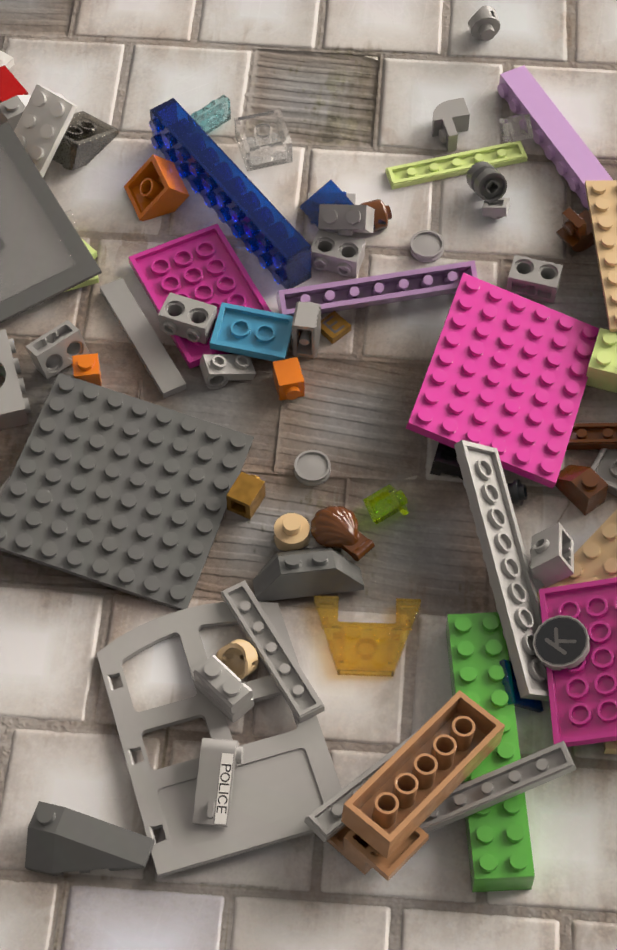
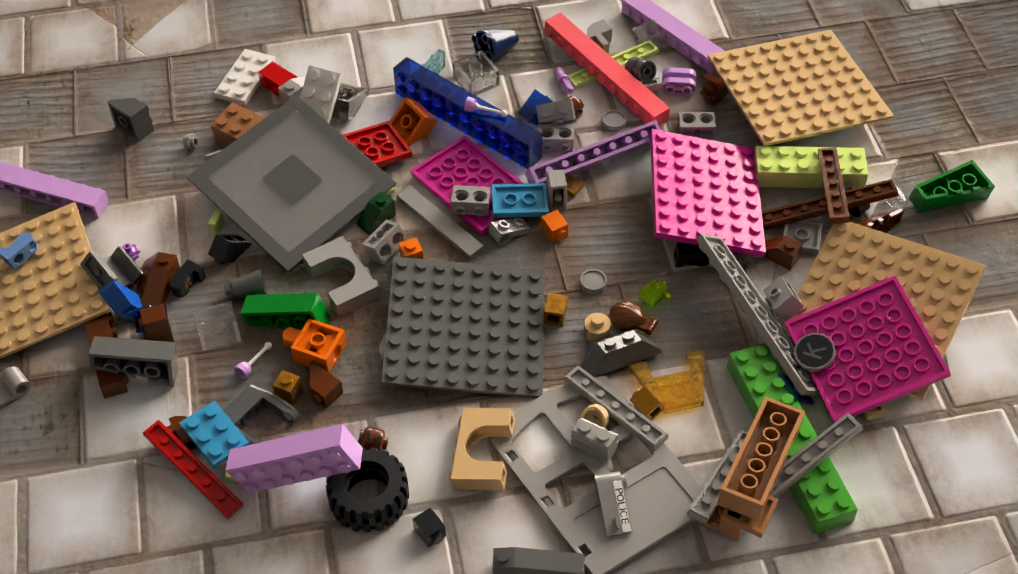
camera: 15 degrees left, 5 degrees down
(63, 304) = (376, 212): none -> dark green slope
(79, 630) = (474, 426): none -> tan arch
(100, 211) = (380, 143): none -> red plate
(230, 186) = (472, 105): none -> hinge
(304, 100) = (494, 42): none -> dark blue cone
(314, 656) = (647, 403): none -> pearl gold brick
(379, 174) = (563, 80): none -> lavender axle
(441, 173) = (606, 70): none -> coral brick
(535, 209) = (678, 81): none -> lavender brick

